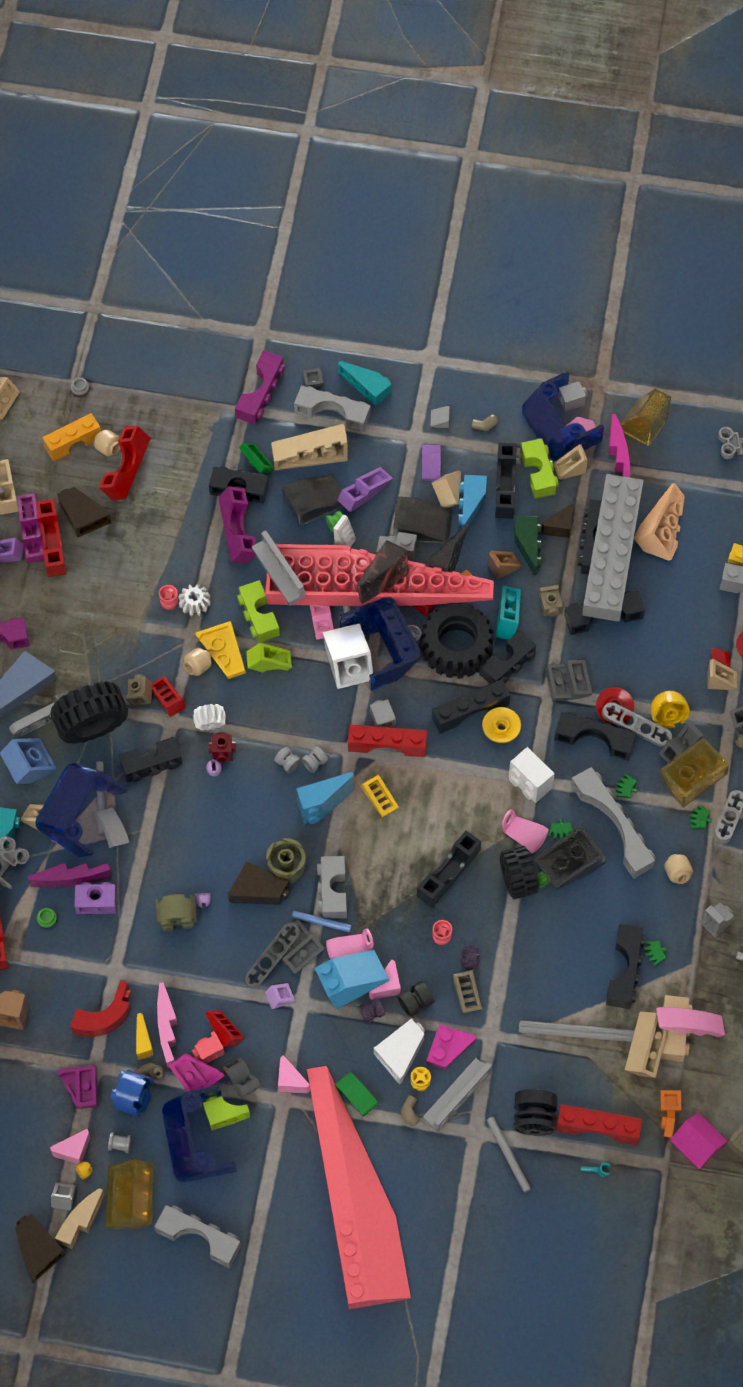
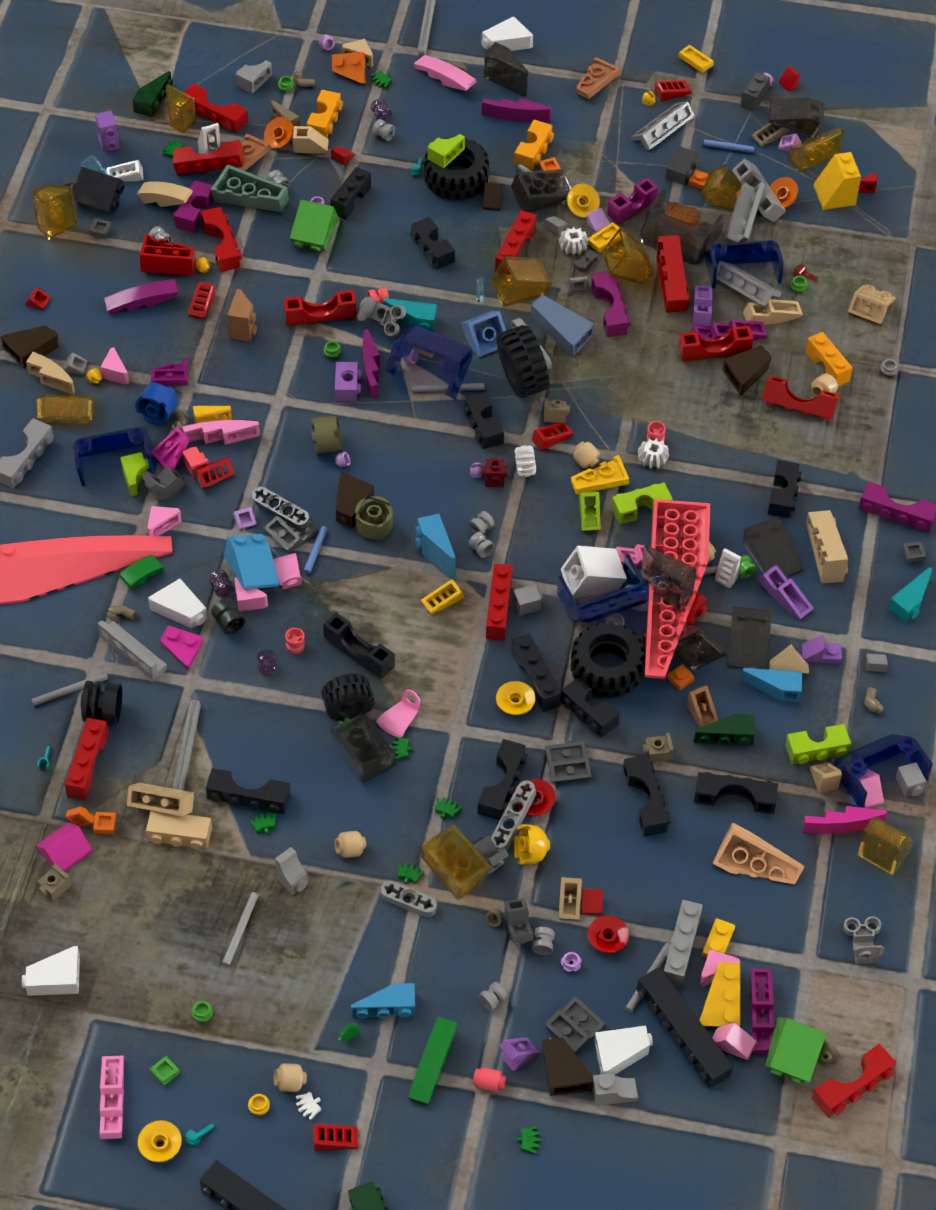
camera: 90 degrees right, 10 degrees down
(103, 1022) = (232, 393): red arch -> none
(113, 827) = (416, 391): light grey slope -> none
(119, 1142) = (115, 400): light grey bush -> none
(233, 506) = (735, 484): magenta arch -> none
(256, 458) = (816, 502): green plate -> none
(279, 569) = (678, 506): light grey fence -> none
(311, 401) = (872, 583): light grey arch -> none
(331, 871) = (334, 552): light grey arch -> none
(403, 540) = (718, 619): light grey arch -> none
(420, 1074) = (150, 615): yellow wheel -> none
(463, 975) = (237, 666): dark tan slope -> none
(505, 480) = (776, 710): black arch -> none
(508, 613) = (644, 709): teal slope -> none
(531, 775) = (455, 715): white brick -> none
(559, 524) = (753, 762): dark brown slope -> none
(591, 790) = (368, 807): light grey arch -> none
(612, 547) = (715, 794): light grey brick -> none
(690, 1021) = (177, 833): bright pink slope -> none

